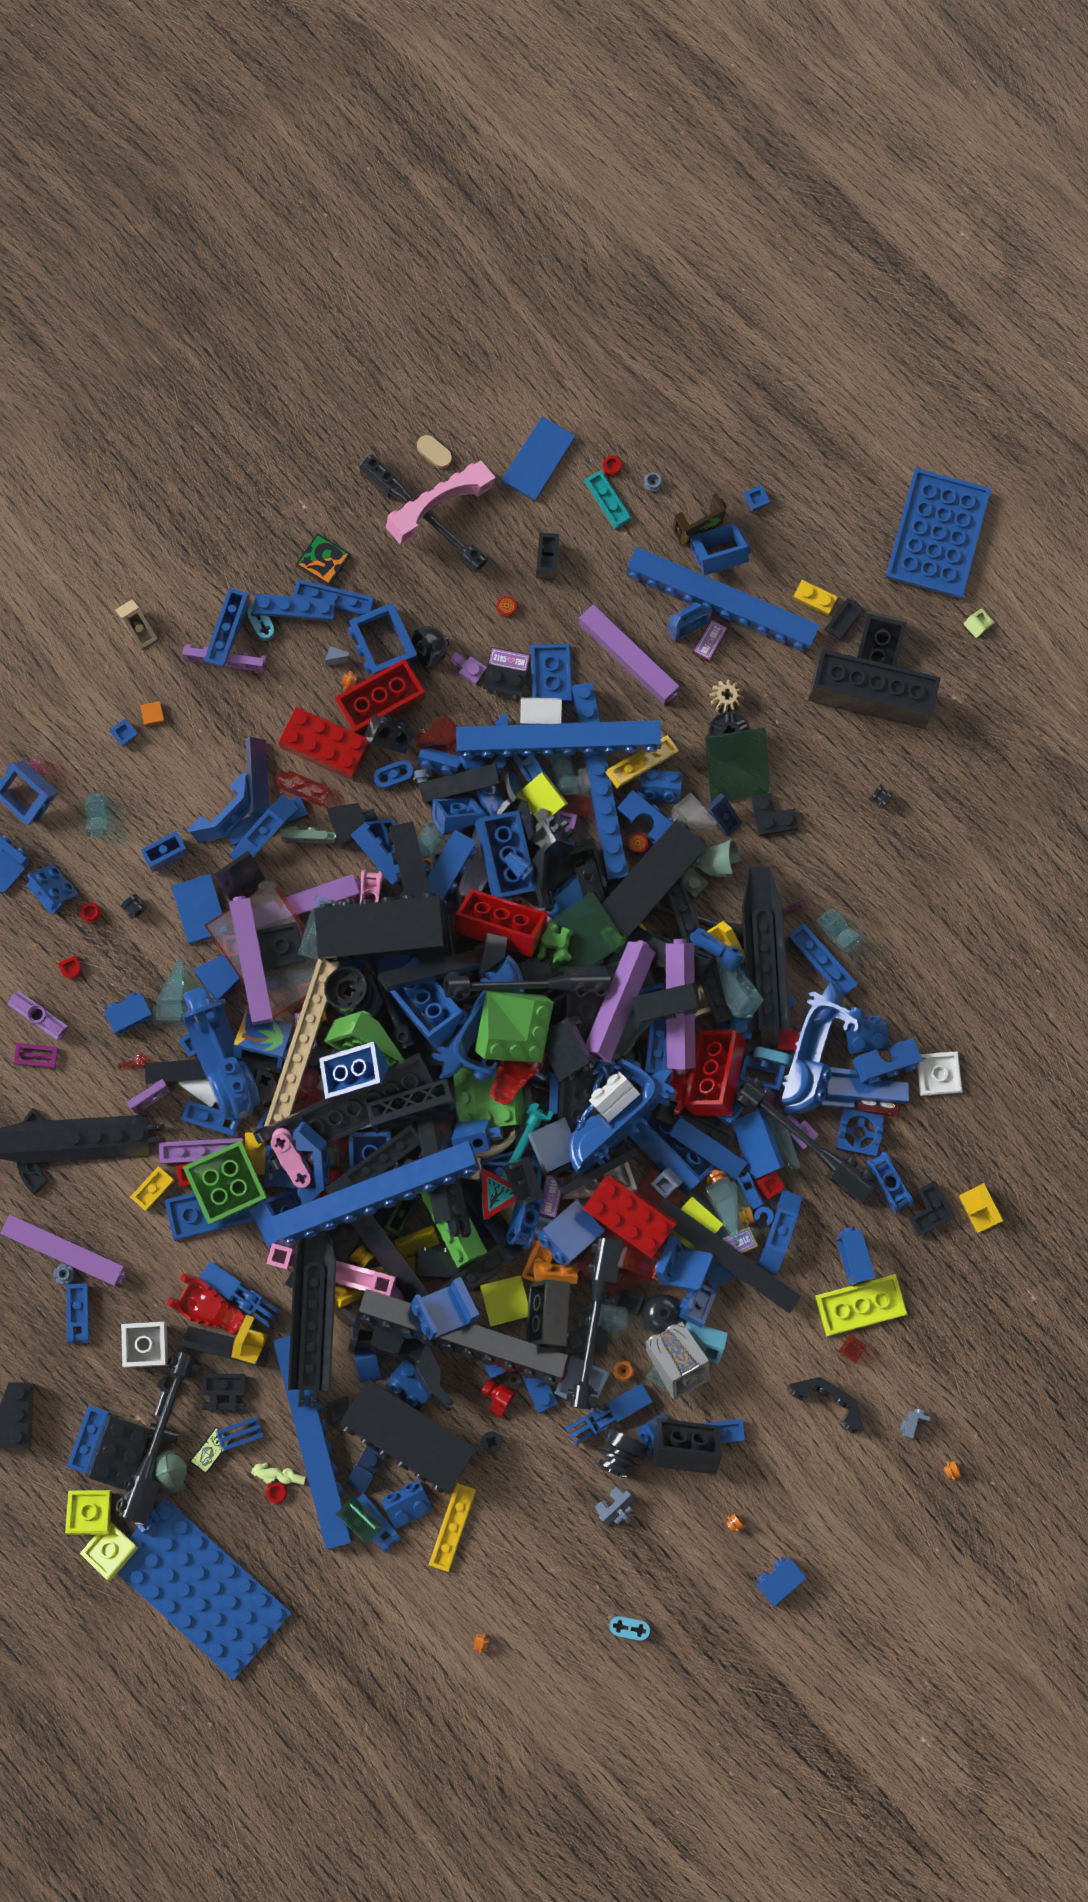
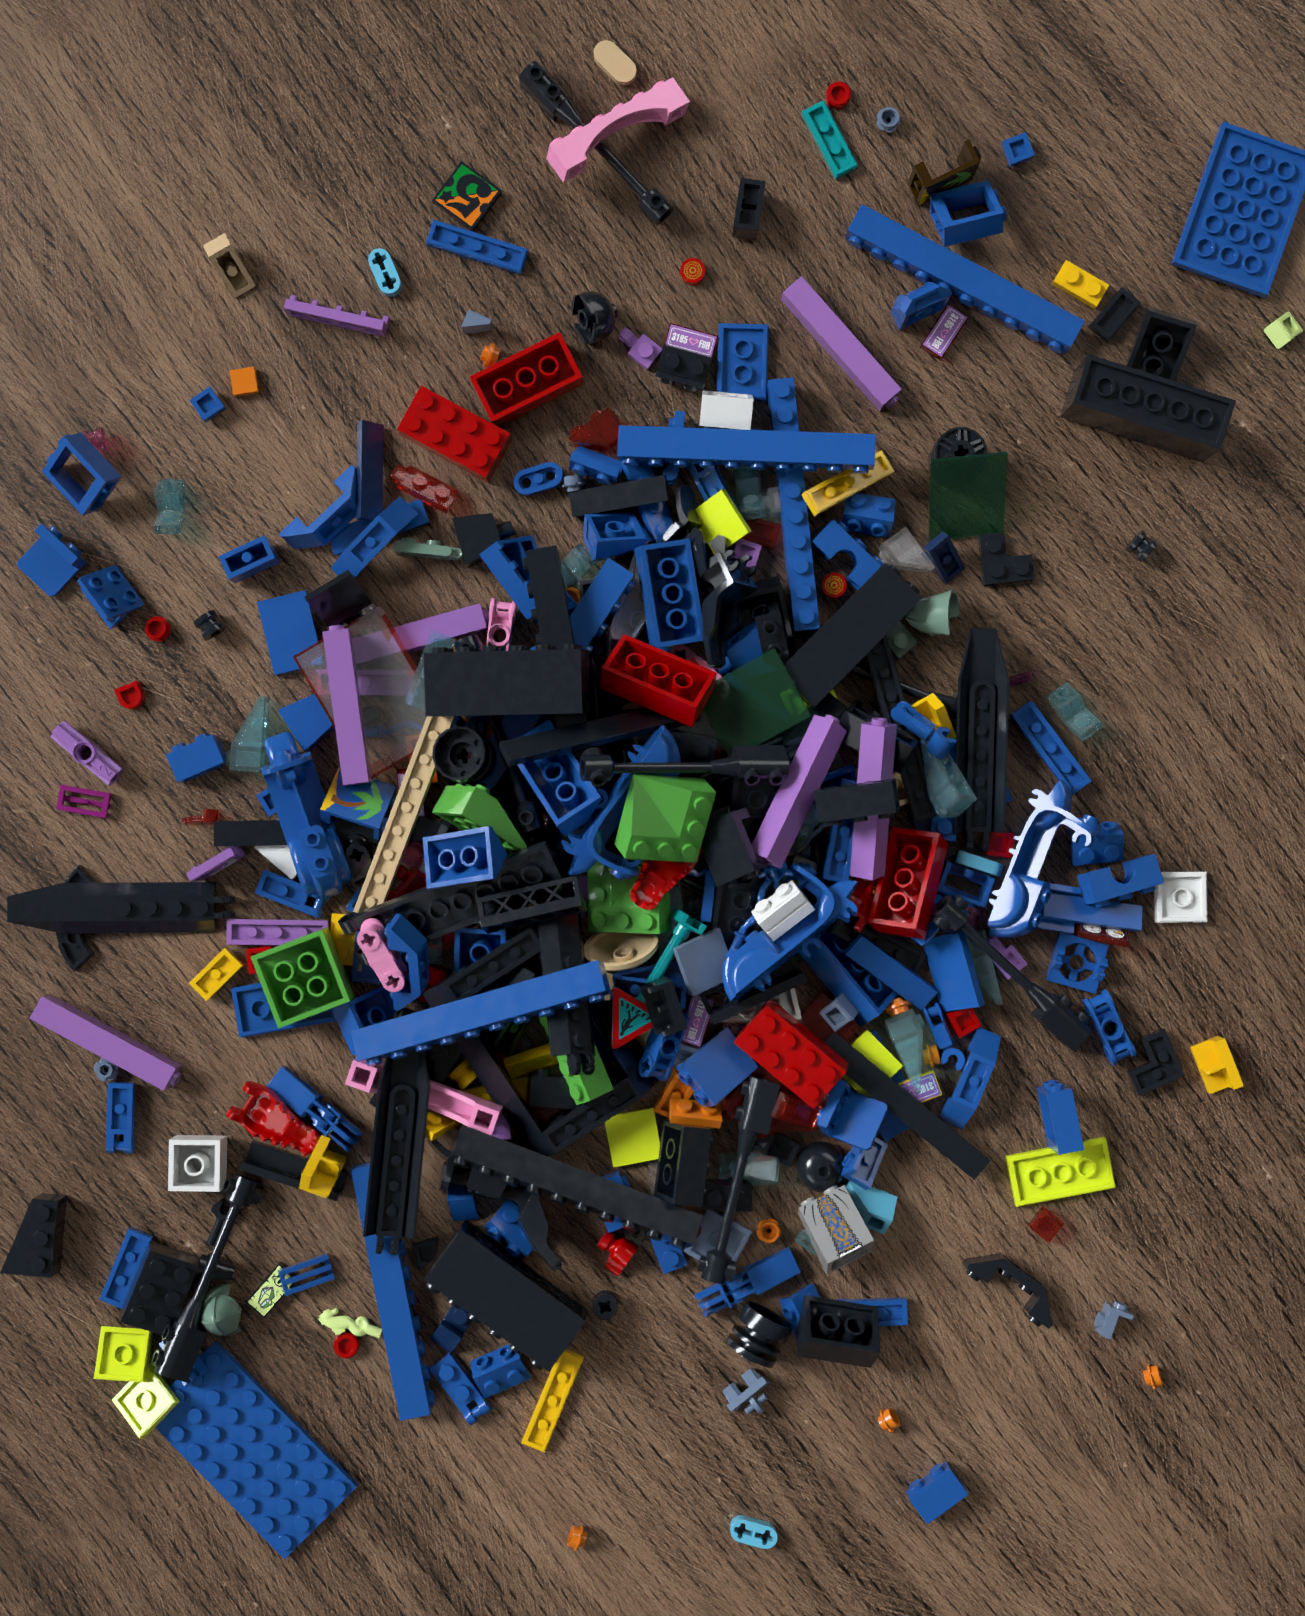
camera: 10 degrees right, 10 degrees up
(223, 1385) = (290, 1214): black plate -> none
(228, 626) = (342, 276): blue slope -> none
(280, 946) = (384, 689): black tile -> none
(294, 607) = (426, 256): blue plate -> none
(359, 1519) = (442, 1388): clear green slope -> none
(362, 649) = (545, 266): blue window -> none
(388, 736) = (533, 431): black brick -> none
(445, 1310) = (557, 1157): blue panel -> none
(477, 1133) = (608, 944): blue torso -> none
(493, 952) = (645, 720): black slope -> none
(519, 866) = (685, 610): blue cone -> none
(538, 458) = (745, 80): blue tile -> none
(560, 942) = (728, 709): bright green animal -> none
(733, 695) = (951, 410): tan gear -> none

